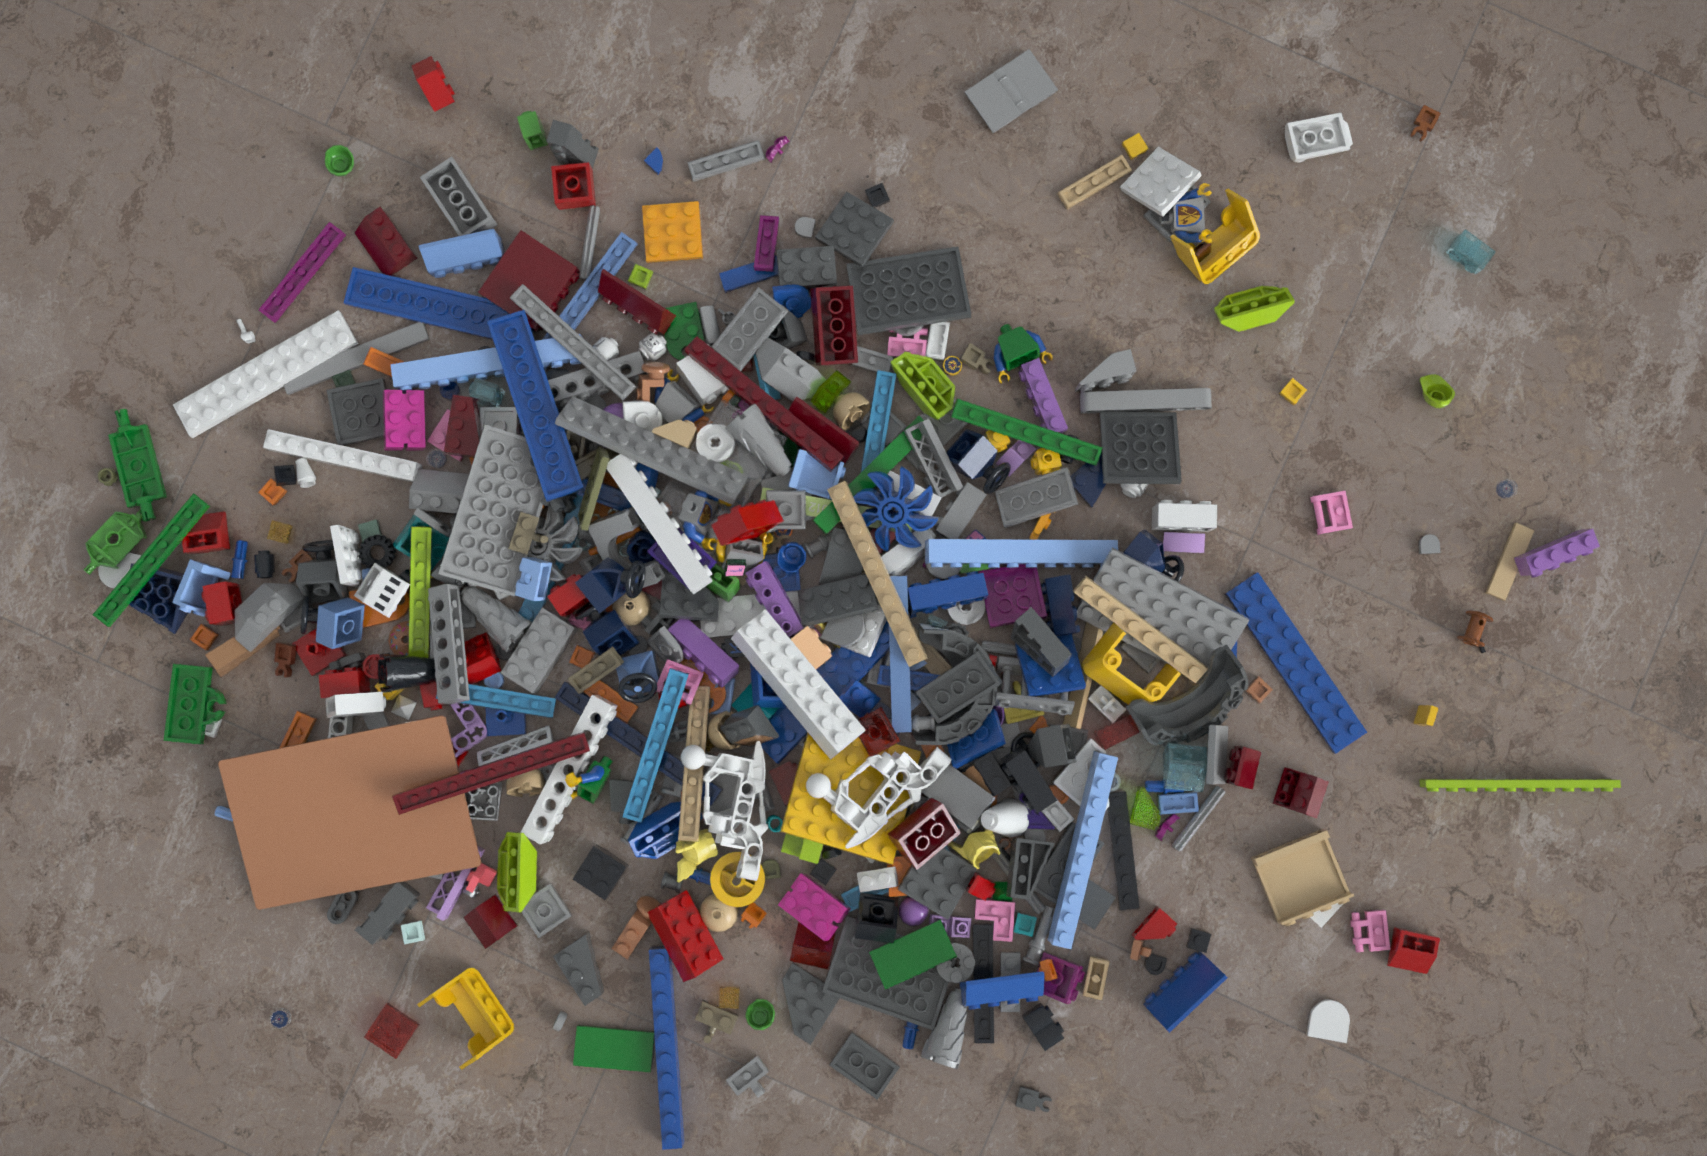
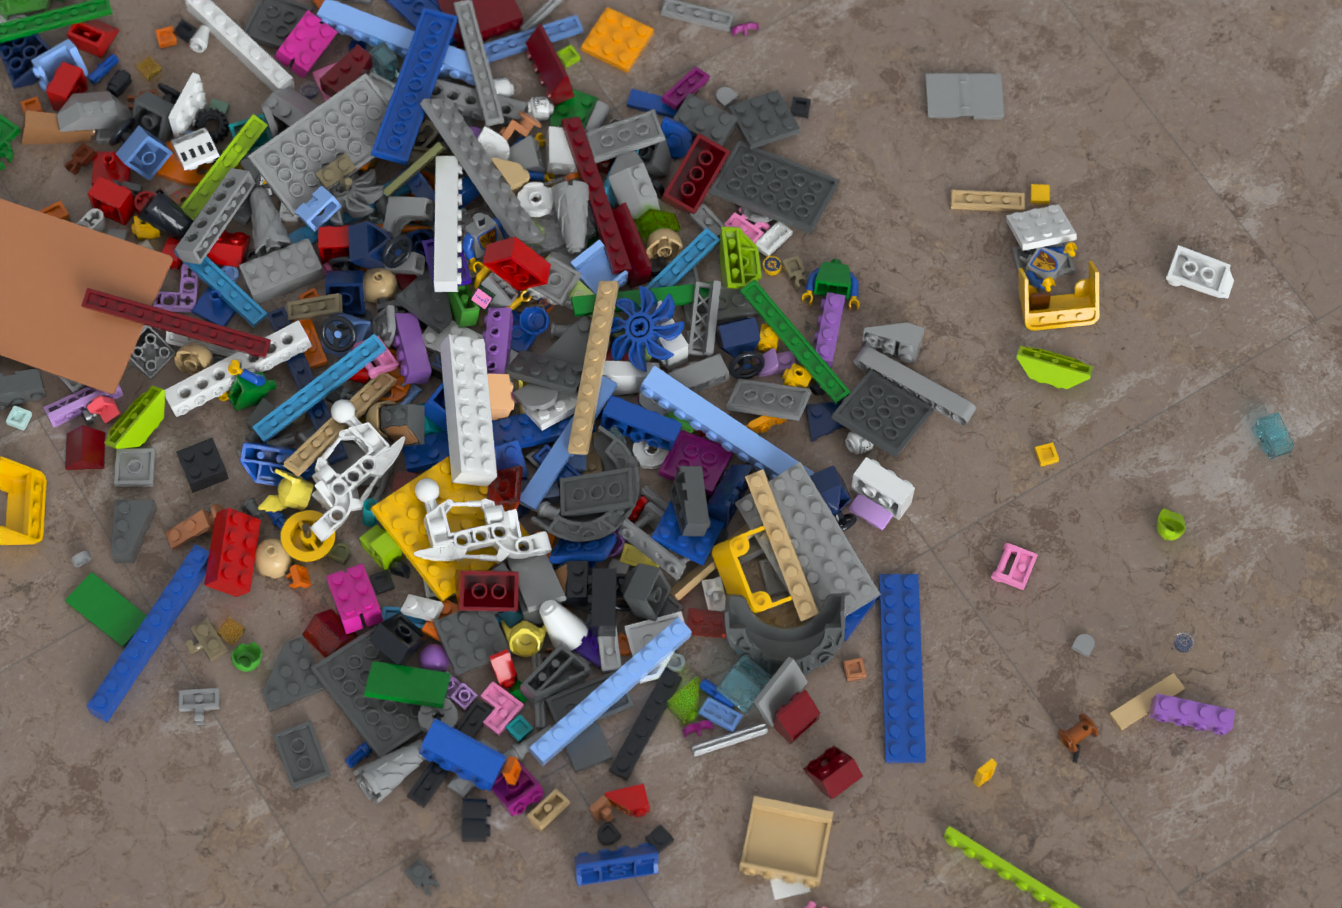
camera: 30 degrees right, 20 degrees down
(355, 704) = (109, 215): white brick -> none
(562, 503) = (382, 169): dark grey hips -> none
(1425, 121) = (1301, 314): dark orange plate -> none

